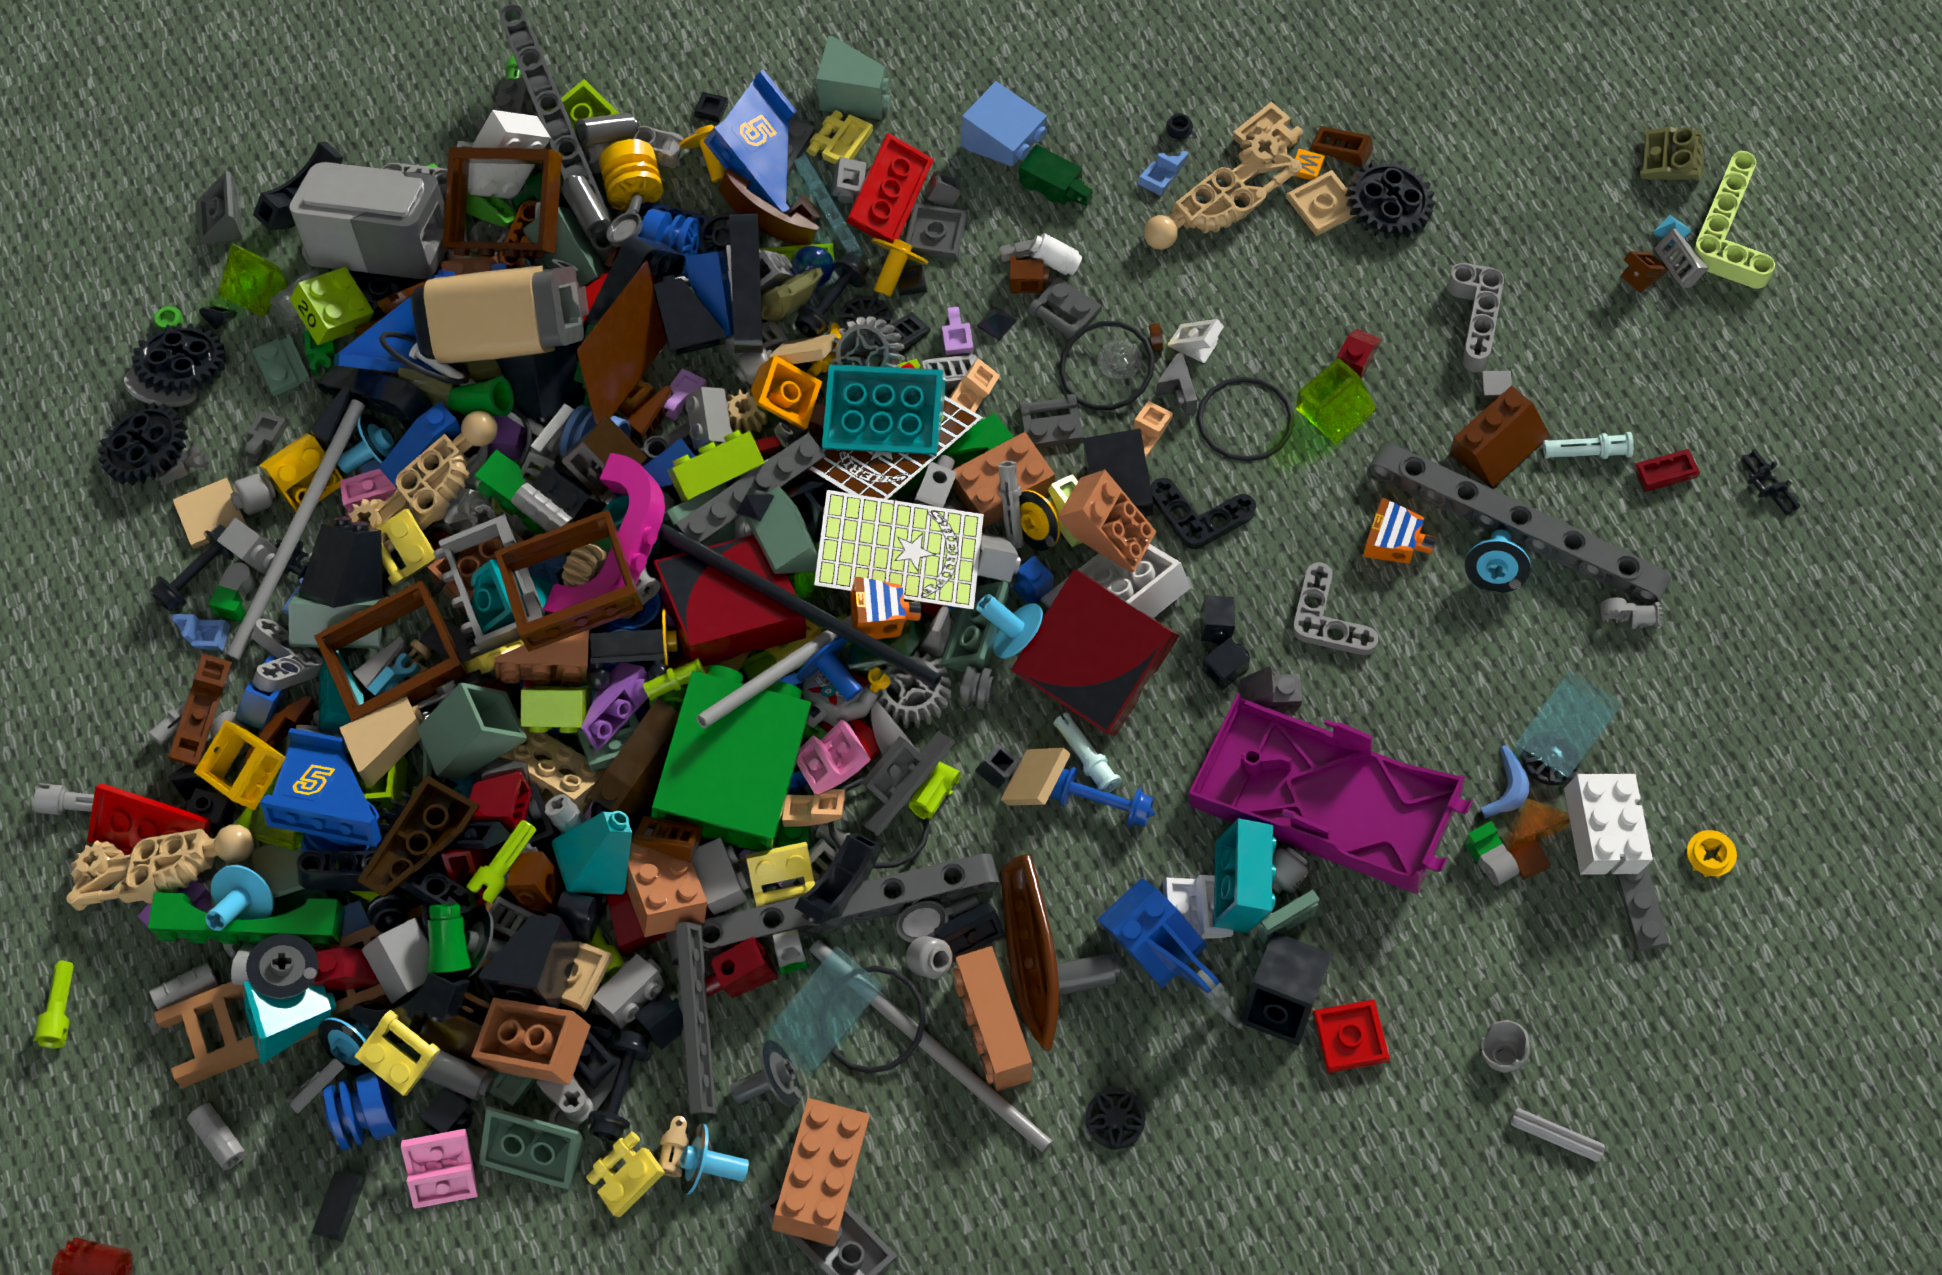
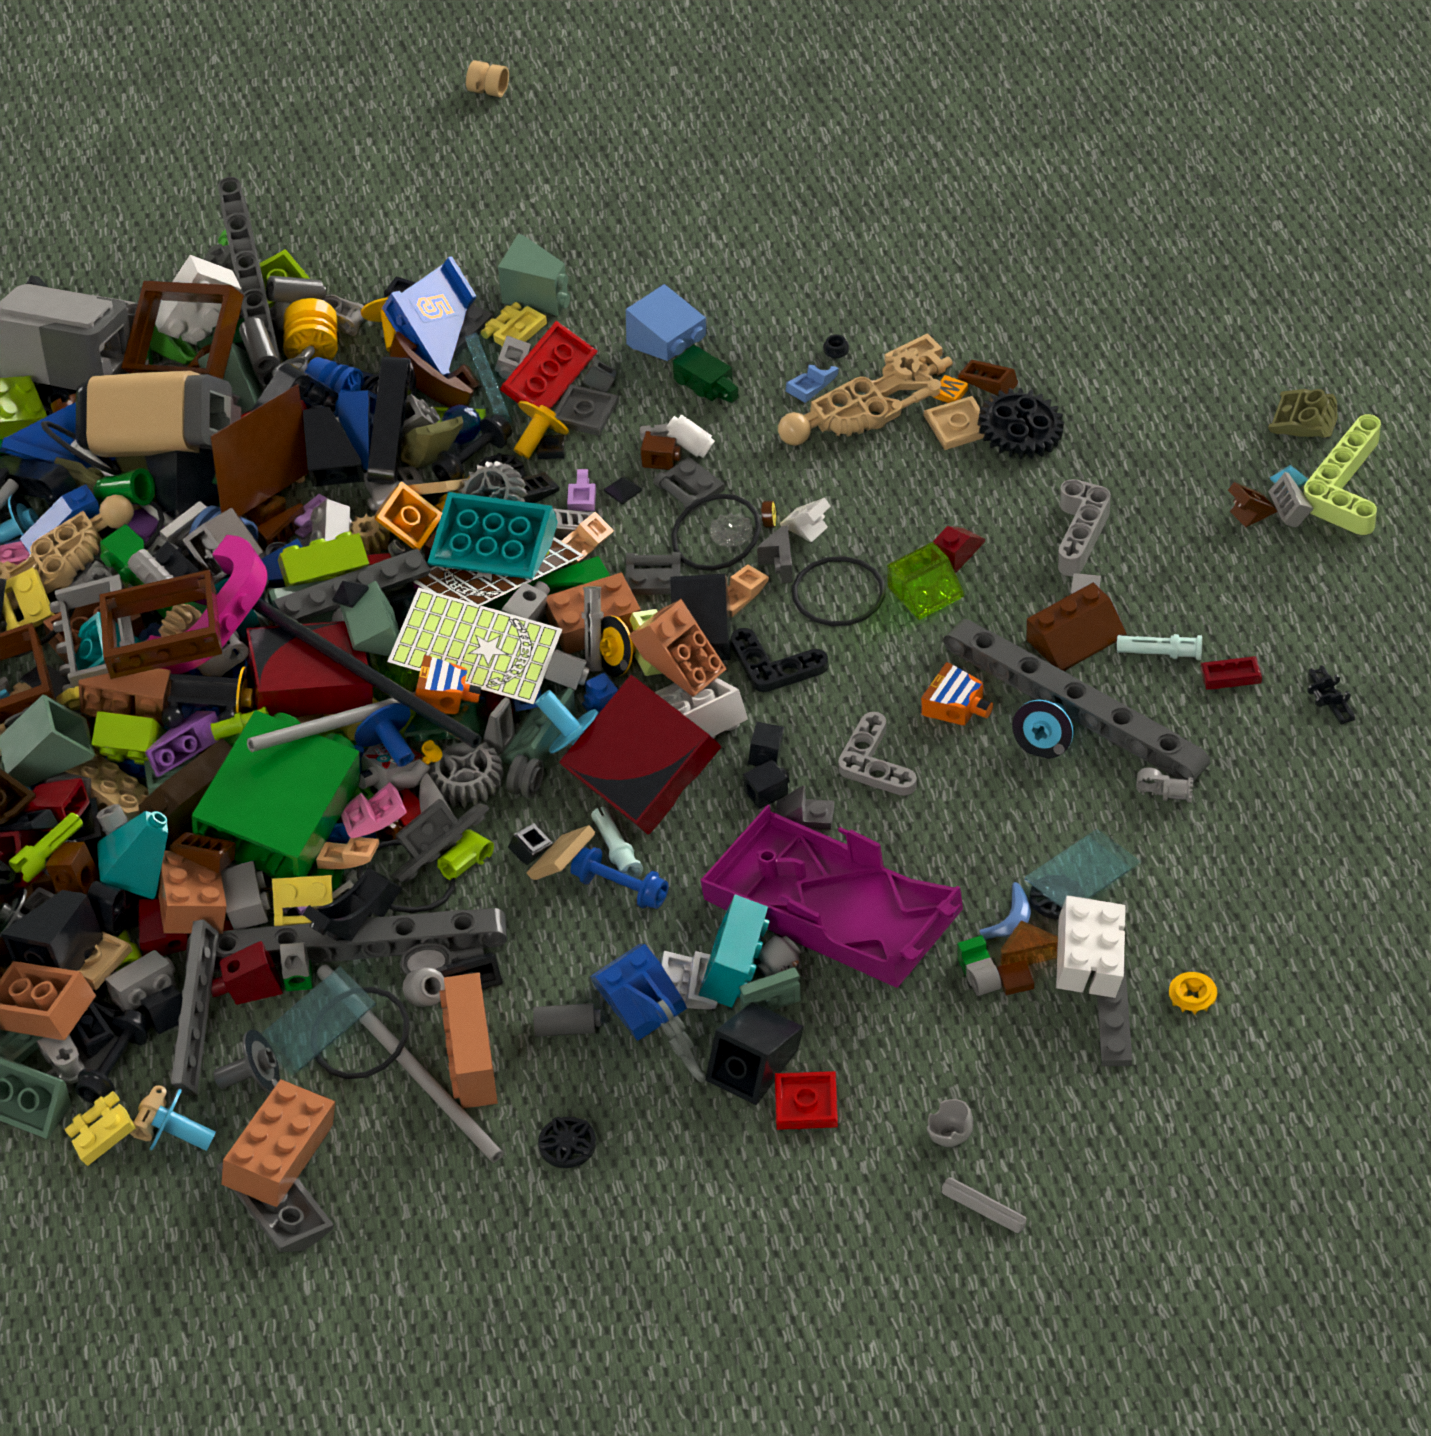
camera: 10 degrees right, 15 degrees down
(1030, 949) = (521, 991): reddish brown piece -> none

